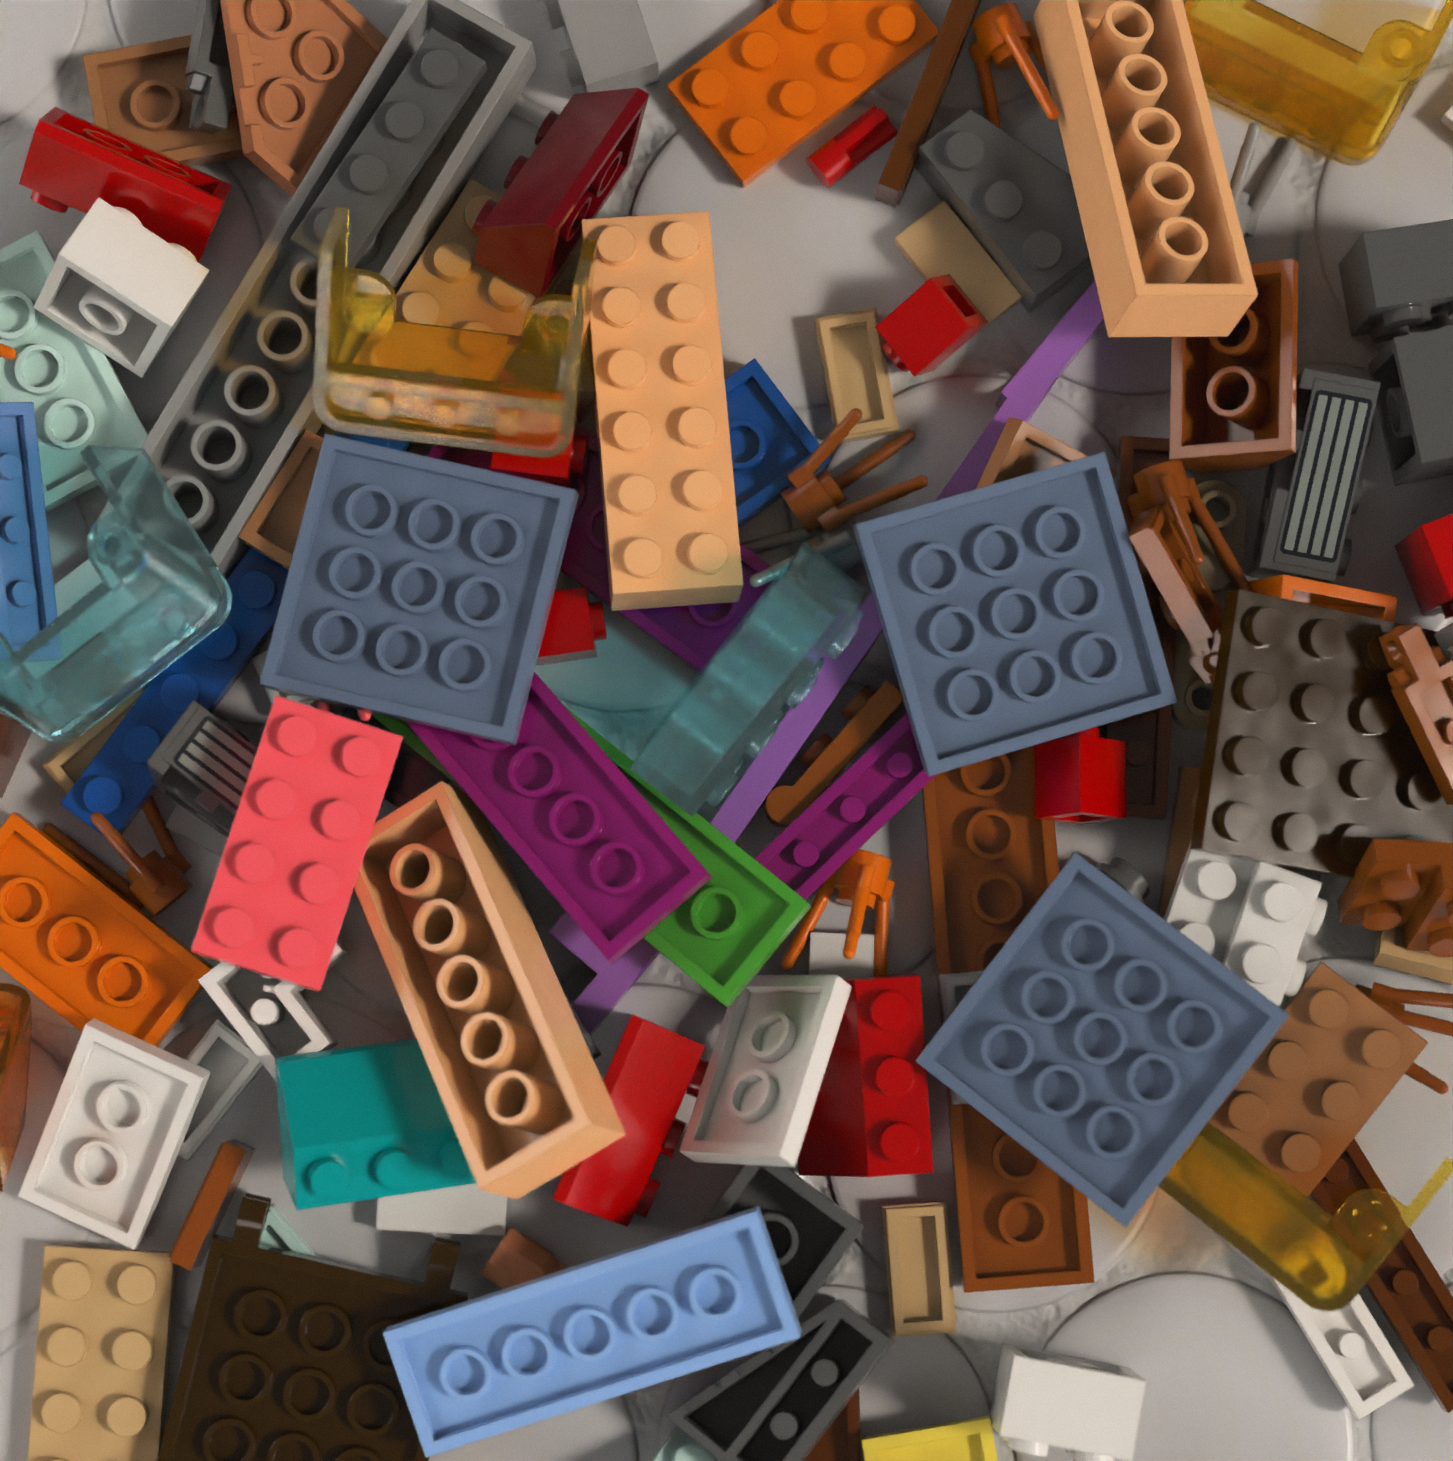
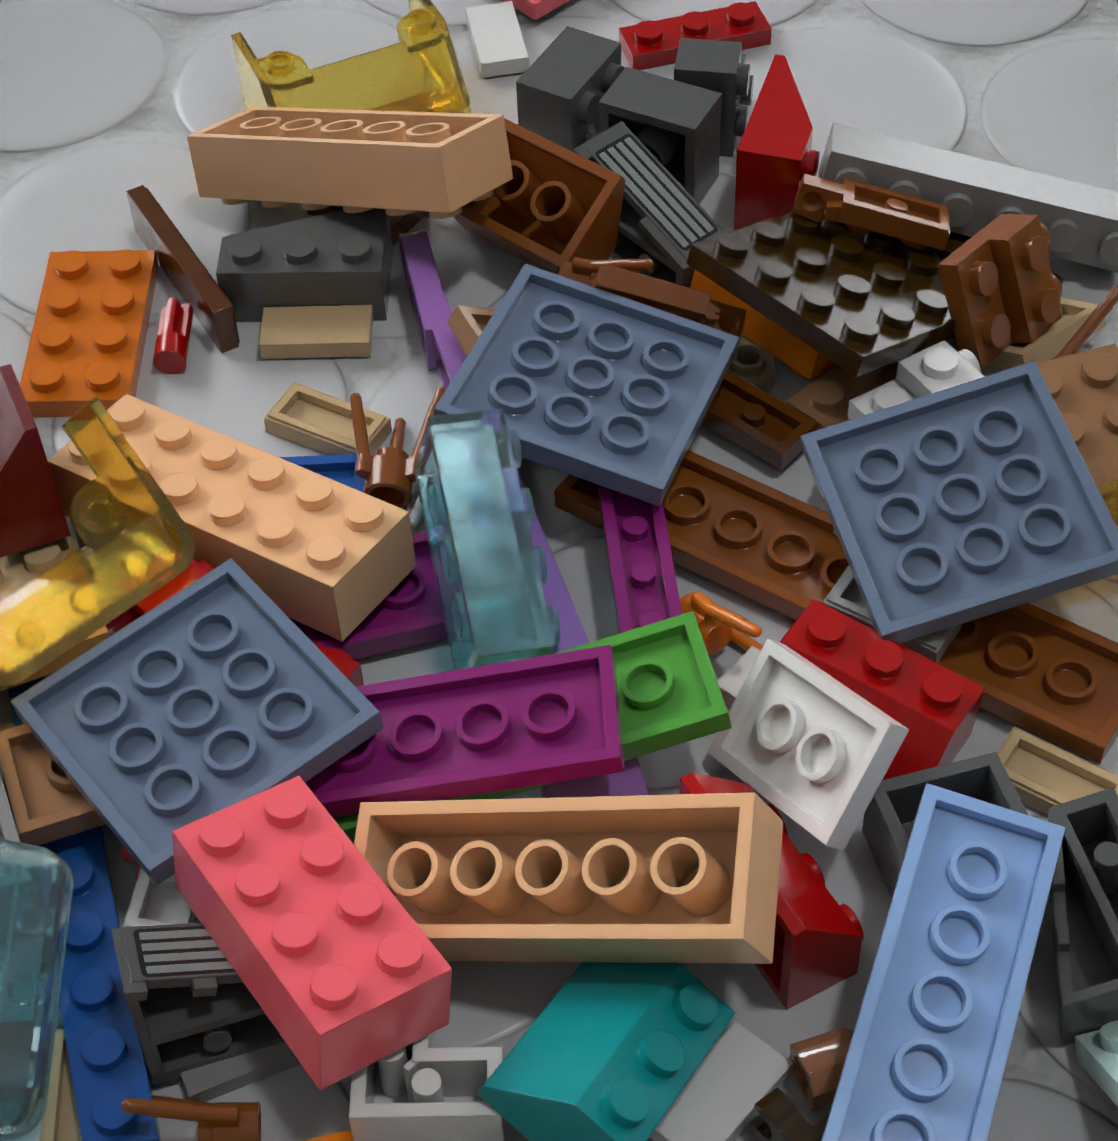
camera: 50 degrees left, 35 degrees down
(830, 757) = (589, 583): dark orange plate -> none
(930, 326) = (338, 349): red brick -> none
(1008, 42) = (201, 222): orange plant -> none
(1080, 779) = (744, 441): red brick -> none

